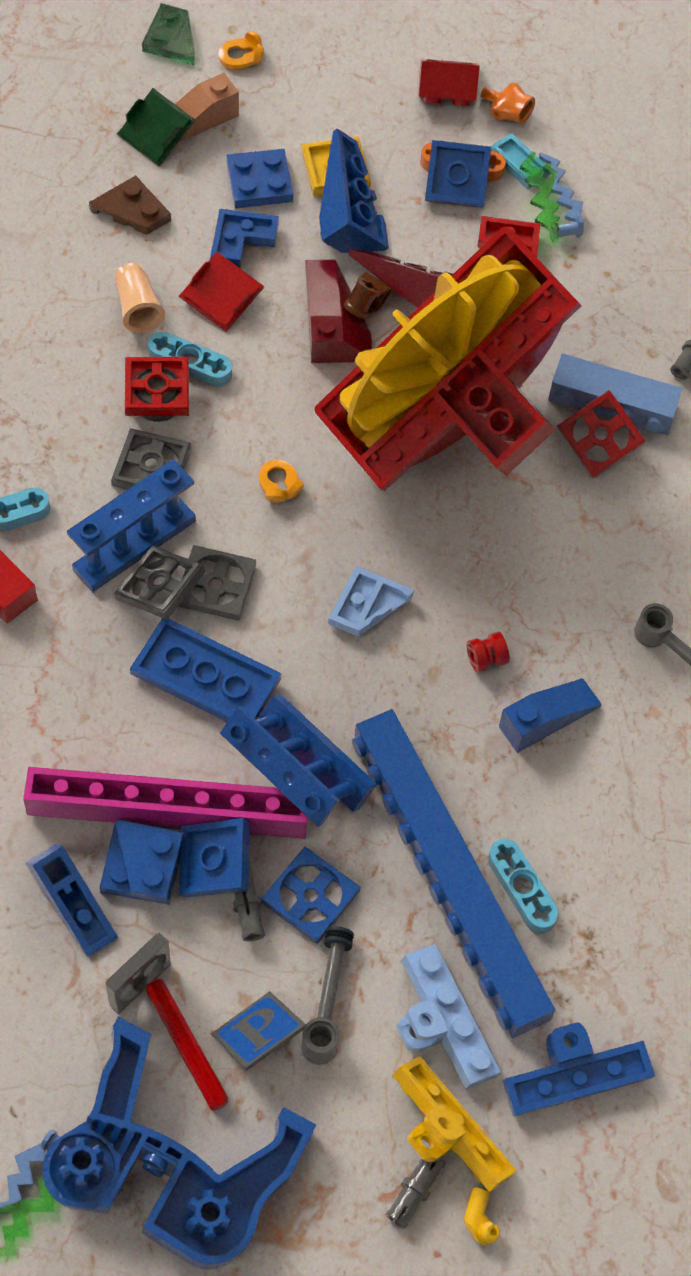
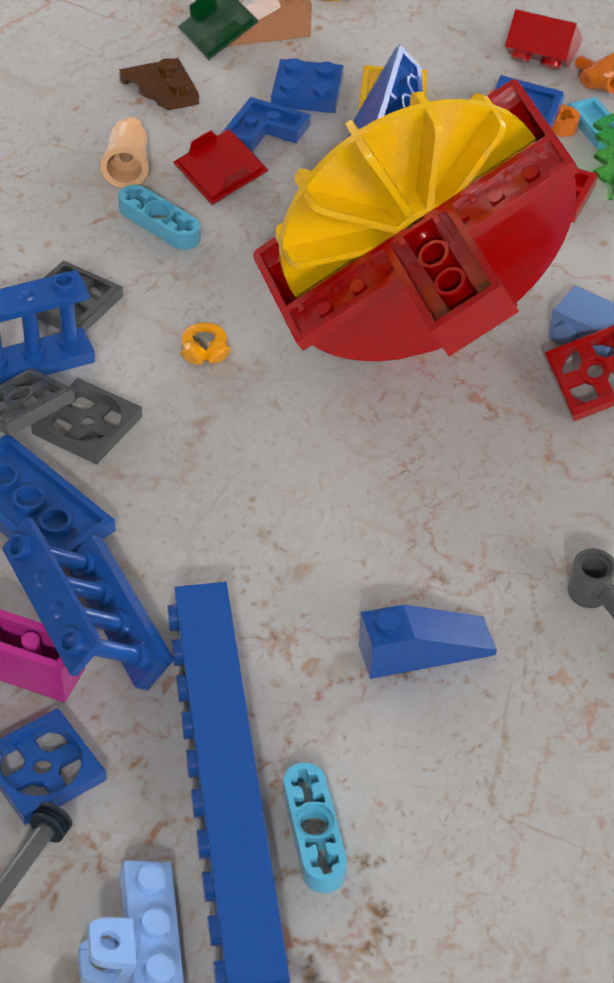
camera: 20 degrees right, 15 degrees down
(154, 389) = (106, 228): red piece -> none
(367, 601) = (250, 475): light blue wing -> none
(488, 652) = (364, 561): red wheel -> none

